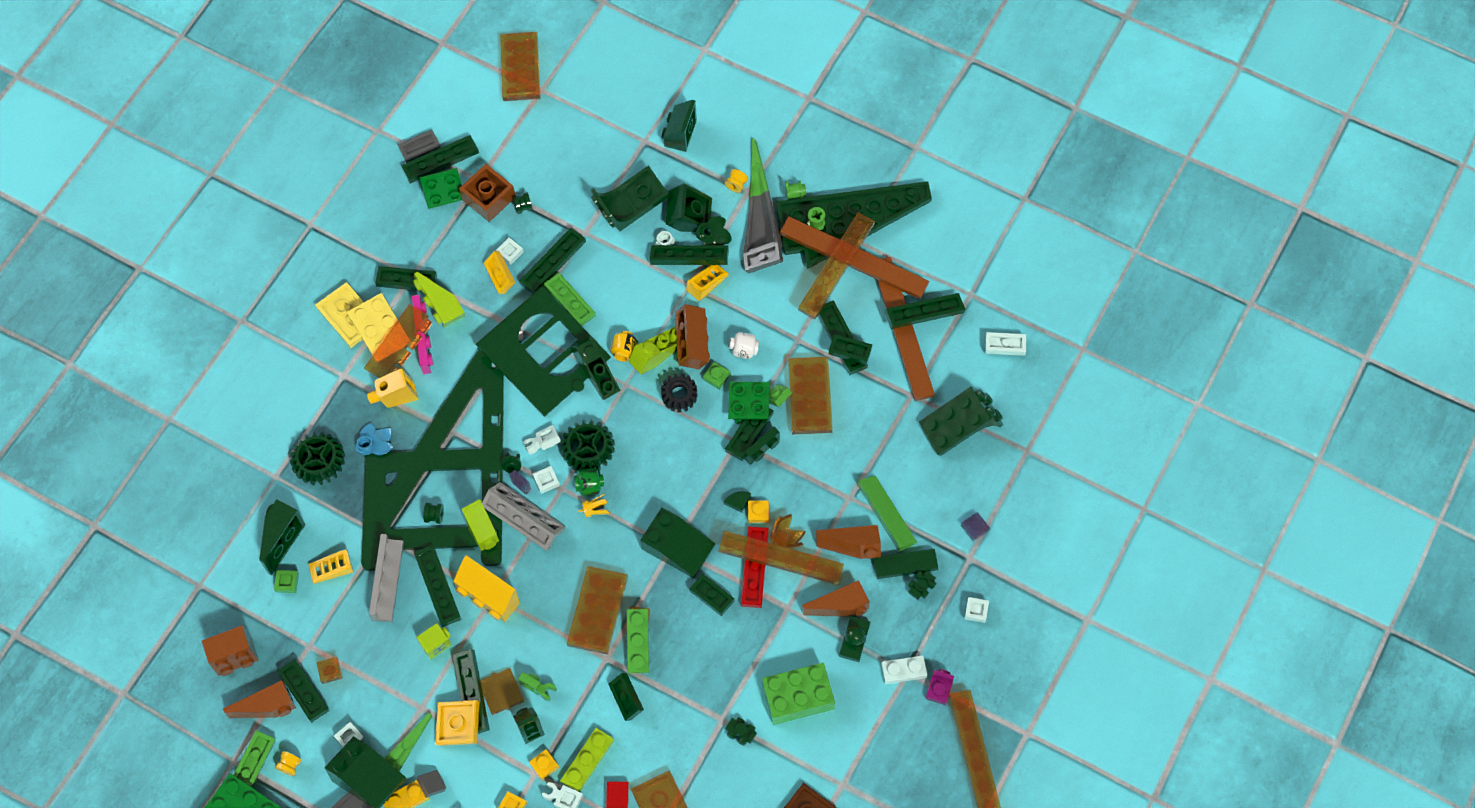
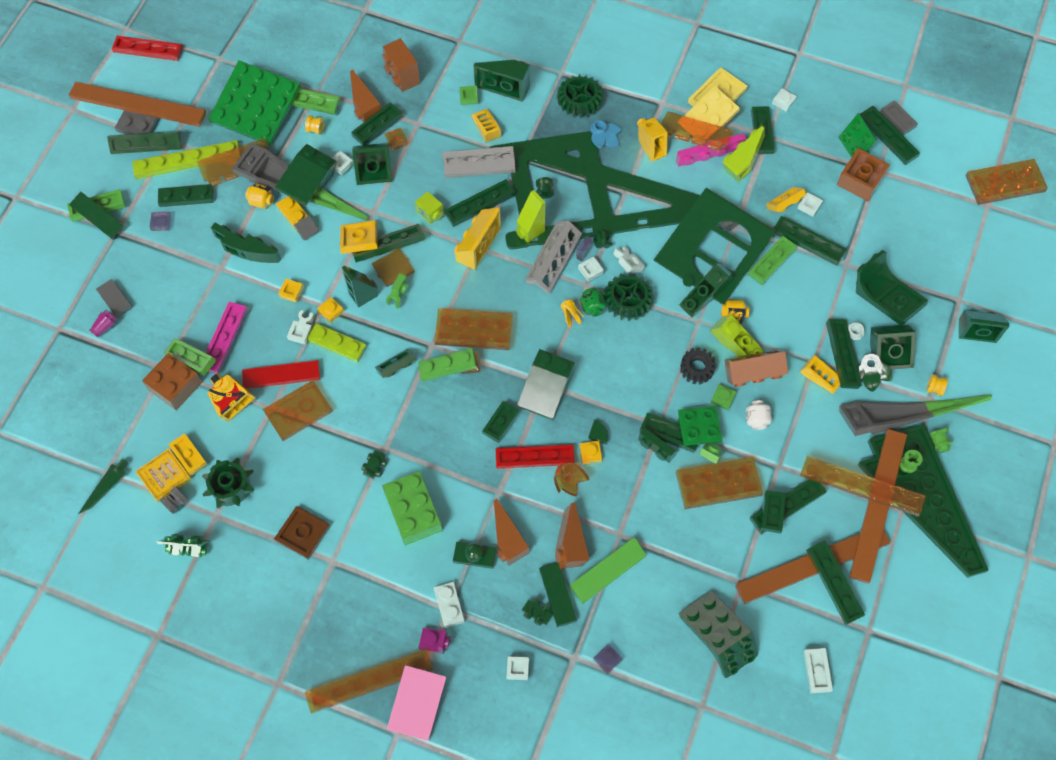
camera: 80 degrees right, 0 degrees up
(358, 699) = (372, 163): none -> dark green slope
(370, 251) = (784, 99): none -> light aqua plate
(522, 203) = (861, 206): dark green wheel -> none
(781, 557) = (543, 476): clear orange plate -> none
(1002, 708) = (416, 703): none -> bright pink tile

